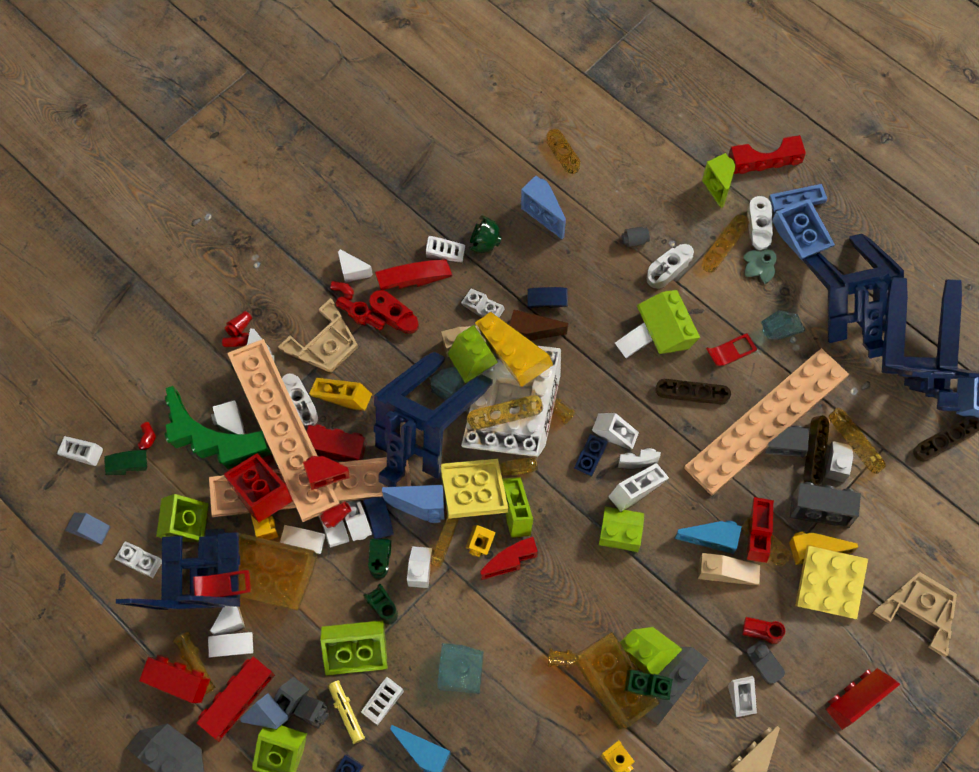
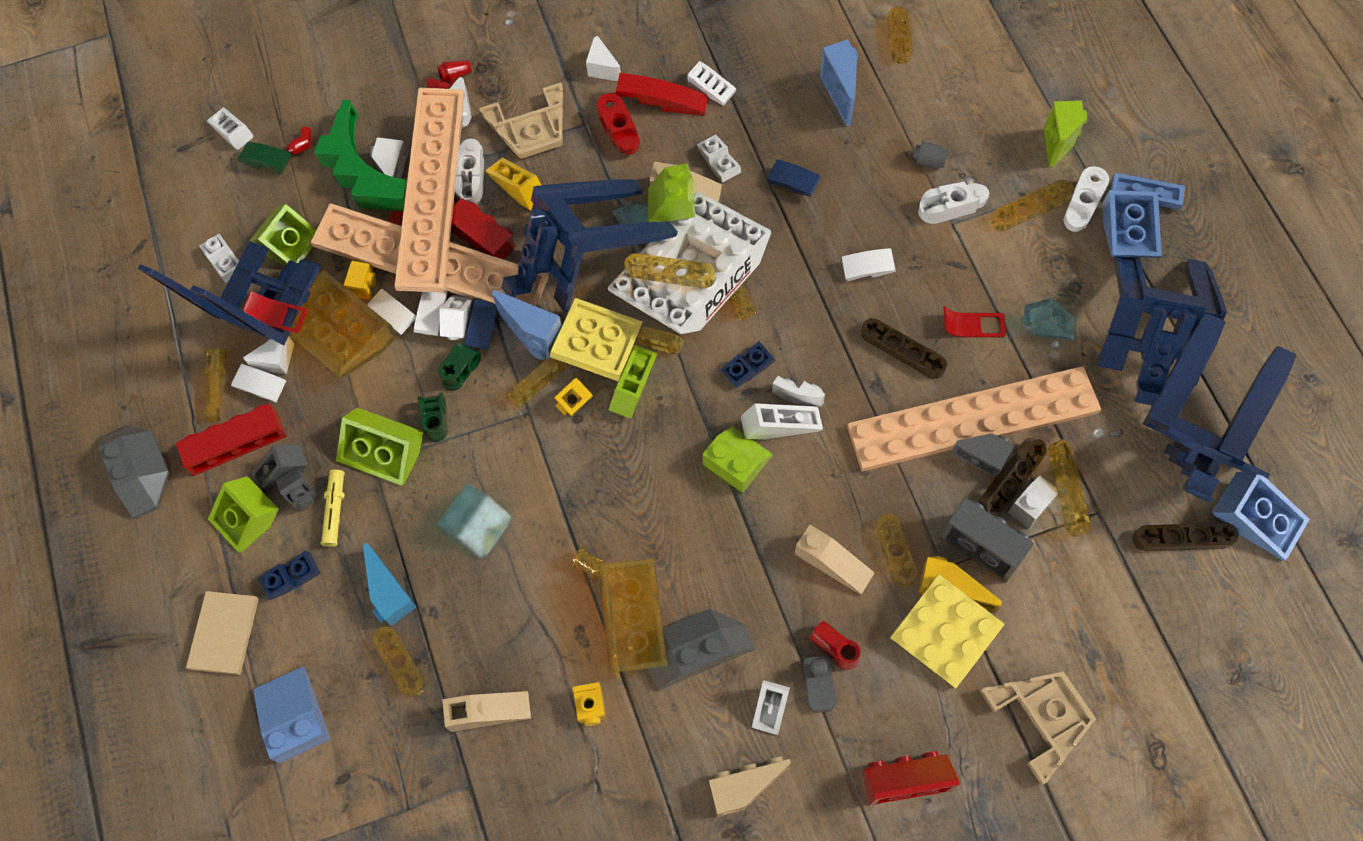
camera: 30 degrees right, 0 degrees up
(88, 527) = (193, 205): sand blue slope -> none
(175, 679) = (182, 389): red brick -> none
(258, 487) = (370, 235): red slope -> none
(265, 713) = (248, 466): sand blue slope -> none
(324, 471) = (442, 246): red slope -> none
(335, 514) = (432, 298): red cone -> none
(344, 288) = (582, 79): red arm -> none
(366, 318) = (584, 111): red axle -> none
(388, 705) = (388, 518): white slope -> none
(419, 567) = (492, 396): white slope -> none
(485, 236) = (761, 86): dark green cylinder -> none
(510, 558) = (594, 432): red slope -> none
(515, 351) = (716, 211): yellow wedge -> none
(537, 327) = (759, 202): reddish brown slope -> none
(615, 430) = (789, 349): white slope -> none
(648, 685) = (663, 637): dark green slope -> none
(650, 649) = (690, 601): lime slope -> none
(668, 322) = (914, 260): lime slope -> none
(716, 535) = (839, 514): dark azure slope -> none
(747, 159) = (1109, 125): red arch -> none
(758, 266) = (1058, 245): sand green plate -> none
(760, 530) = (893, 532): red slope -> none

